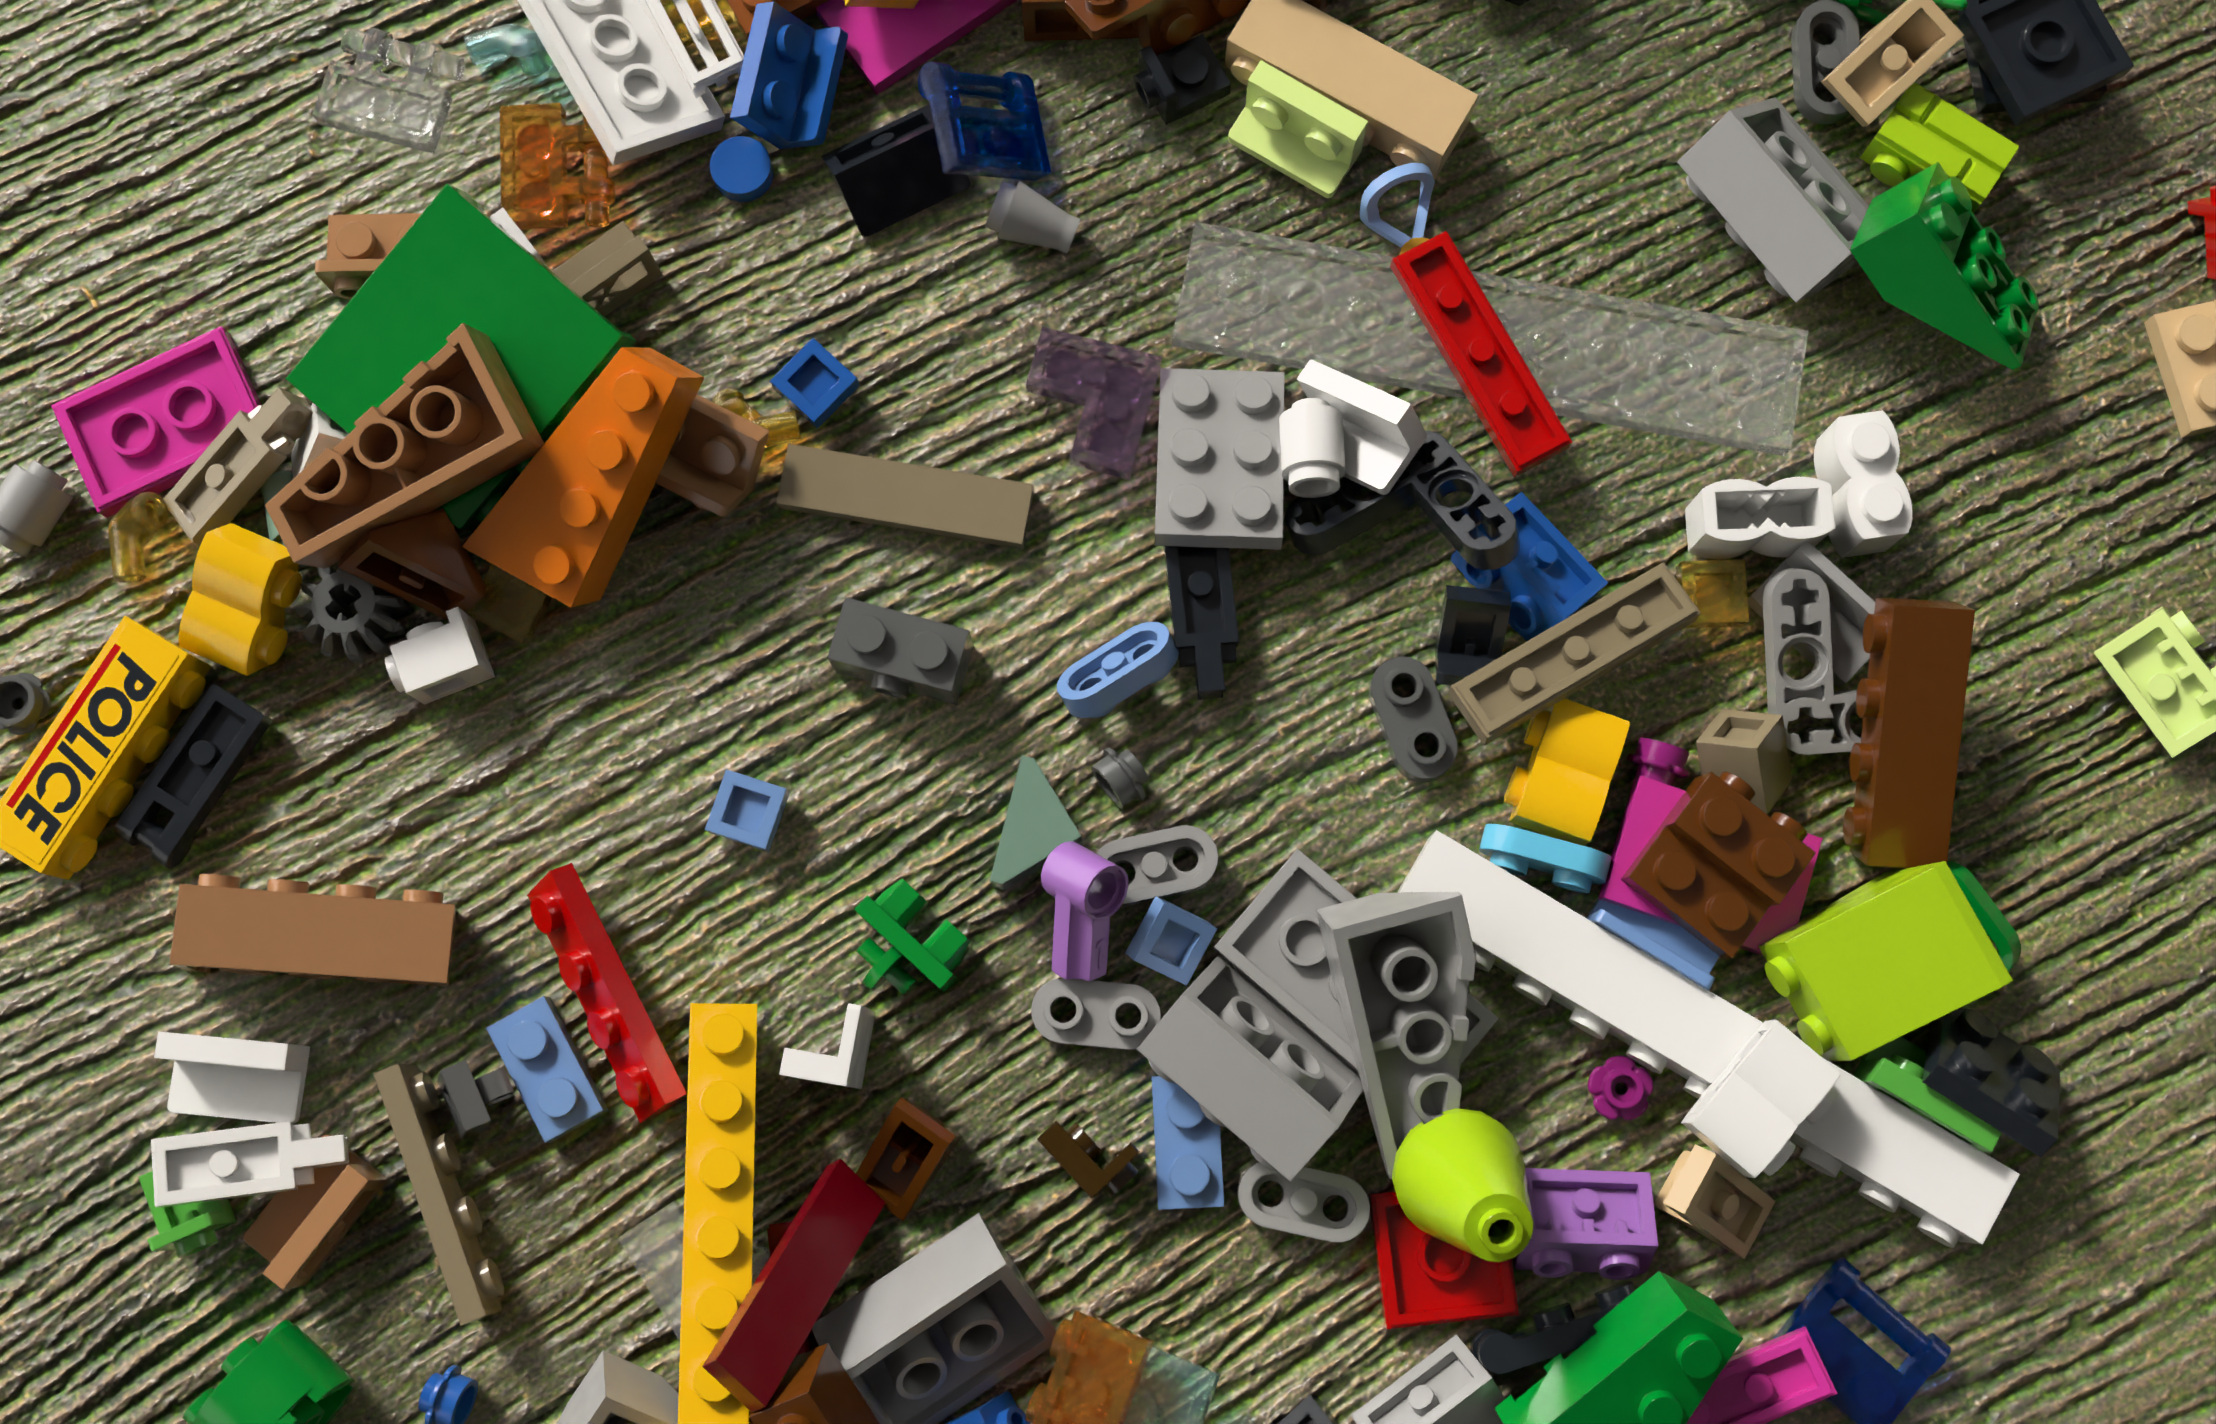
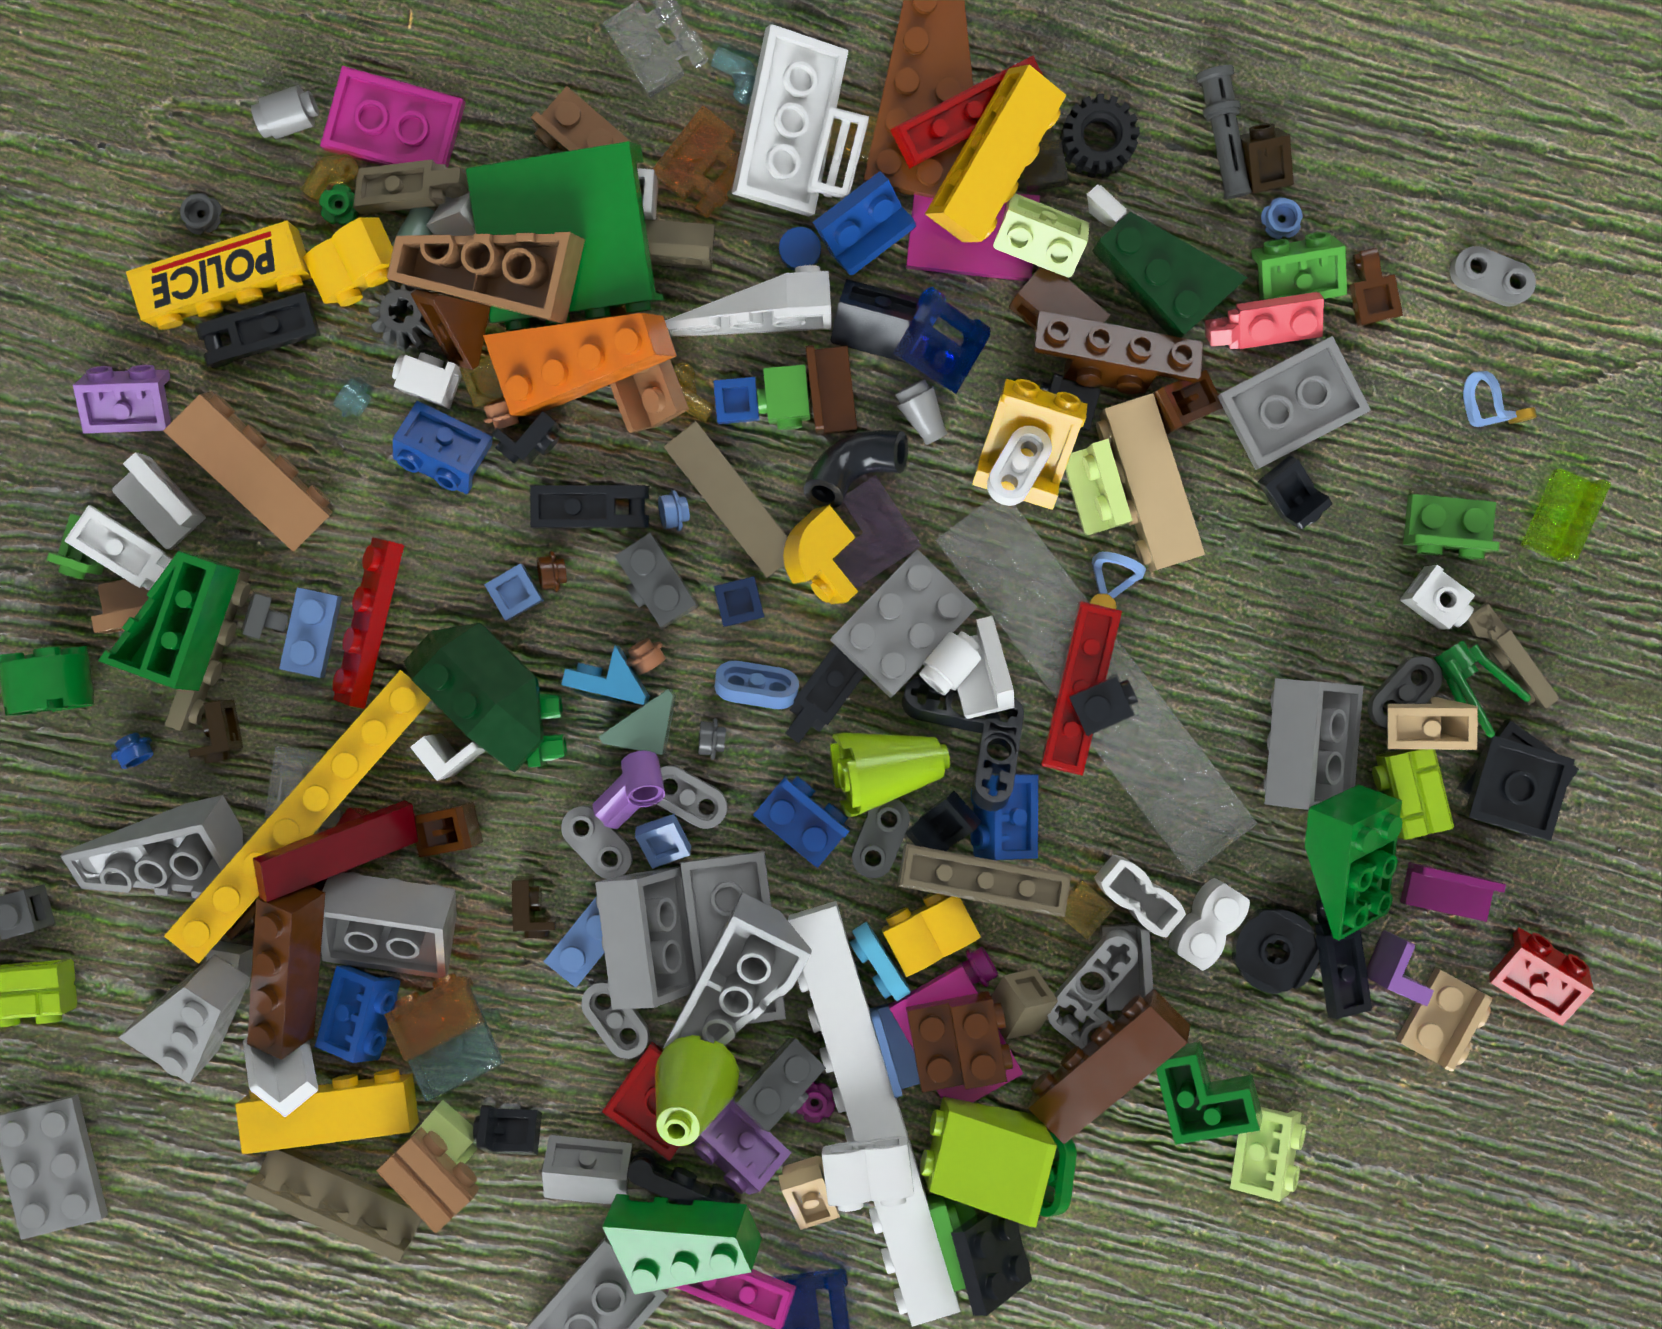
camera: 35 degrees right, 10 degrees up
(96, 992) = (122, 399): none -> medium lavender bracket
(157, 561) = (328, 203): none -> green plate
(370, 756) = (352, 398): none -> clear light blue plate
(374, 1178) = (177, 624): none -> green wedge
(520, 723) = (440, 447): none -> blue bracket
(532, 1270) = (223, 728): none -> dark brown bracket
(558, 624) = (499, 414): none -> nougat plate
(624, 616) = (537, 439): none -> black bracket
(749, 641) = (587, 506): none -> black plate
(770, 751) = (551, 572): none -> reddish brown plate
(774, 238) = (778, 305): none -> white wedge
(808, 944) = (481, 690): none -> dark green wedge
(850, 562) = (673, 510): none -> medium blue plate
(865, 329) = (785, 396): none -> bright green brick
(909, 285) = (831, 390): none -> reddish brown panel
(962, 749) = (645, 656): none -> nougat plate
(963, 806) = (620, 681): none -> dark azure slope
(1001, 331) = (852, 458): none -> black cylinder
(1014, 596) = (739, 601): none -> dark blue plate
(1049, 470) = (811, 553): none -> yellow brick
(1178, 141) = (1023, 405): none -> yellow panel
(1191, 170) = (1018, 468): none -> white plate
(1308, 775) = (802, 820): none -> blue bracket
(1342, 634) = (883, 767): none -> lime cone
(1522, 340) = (1104, 704): none -> black bracket
(1563, 1099) = (779, 1084): none -> dark grey brick
(1943, 484) = (1298, 942): none -> black plate
(2046, 403) = (1342, 970): none -> black hinge
(2061, 685) = (1202, 1107): none -> green brick
(2078, 223) = (1449, 891): none -> magenta panel
(2101, 350) = (1389, 965): none -> medium lavender panel

